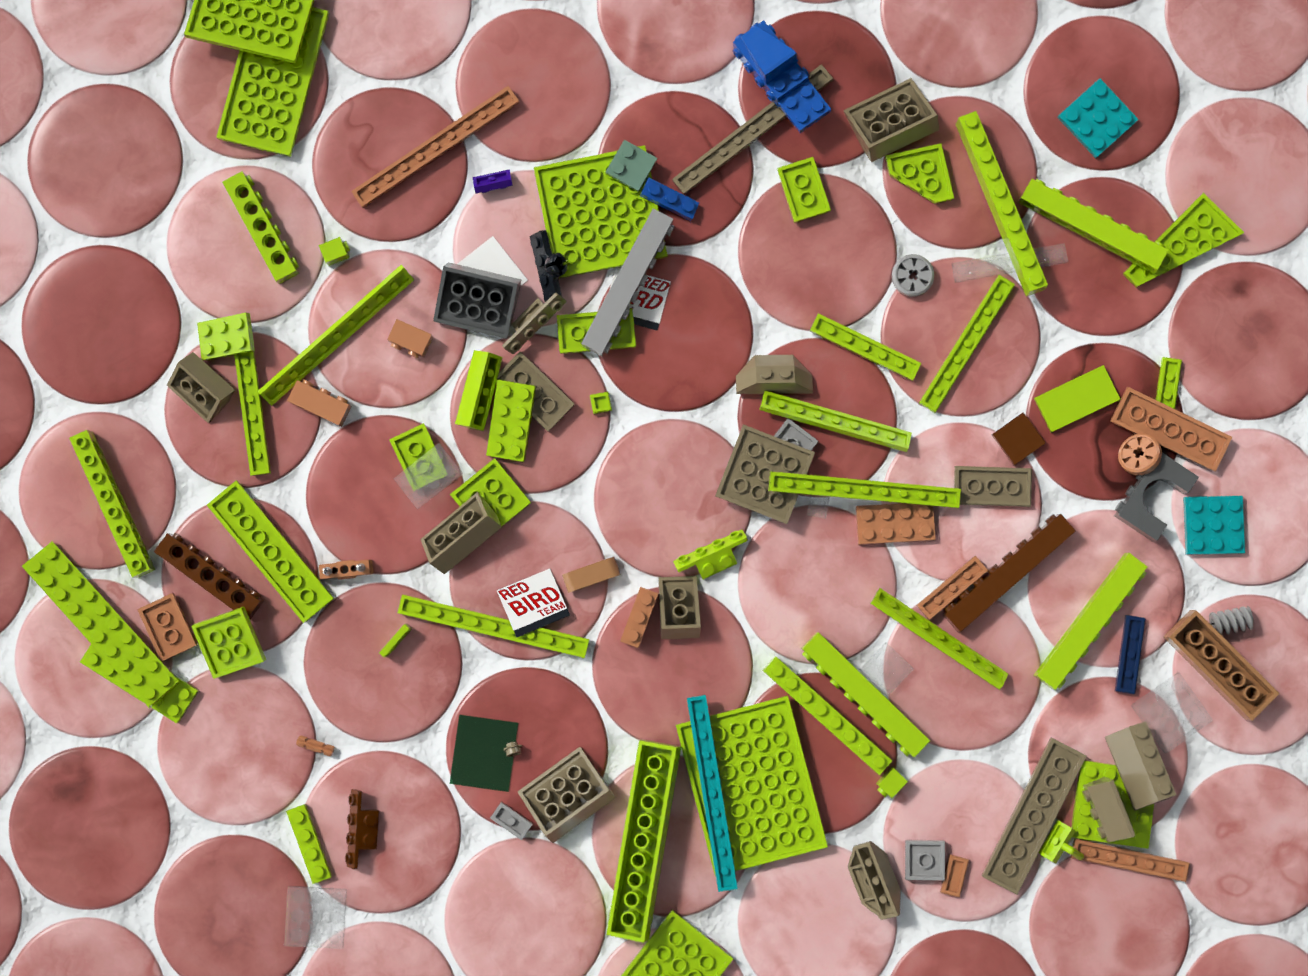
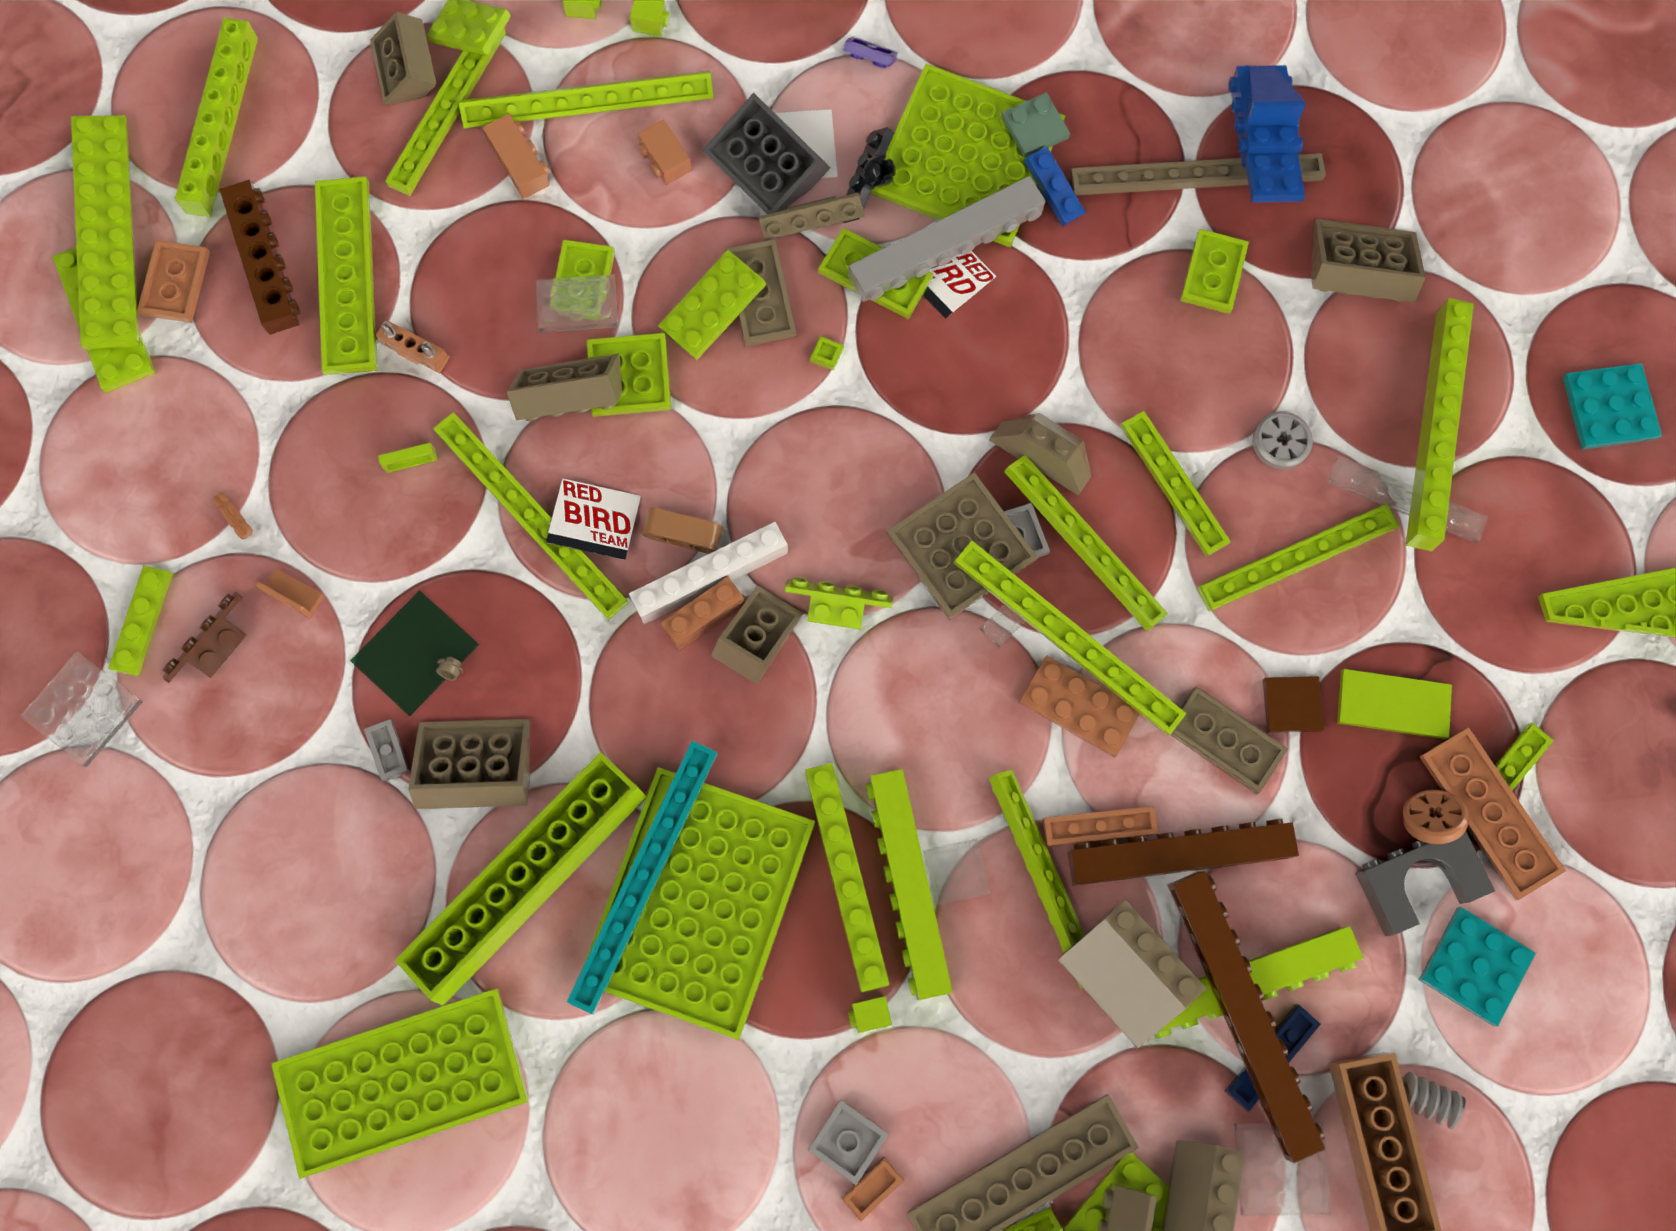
camera: 30 degrees right, 10 degrees down
(228, 642) = (223, 336): lime plate -> none
(386, 768) = (291, 593): none -> nougat panel
(478, 390) = (699, 249): lime brick -> none
(625, 590) = (701, 575): none -> white brick
(875, 880) = (769, 1123): dark tan wedge -> none
(923, 172) = (1366, 336): lime plate -> none
(1023, 664) = (1131, 974): none -> slope
(1093, 226) = (1538, 517): lime brick -> none
(1100, 644) = (1246, 1017): none -> reddish brown brick

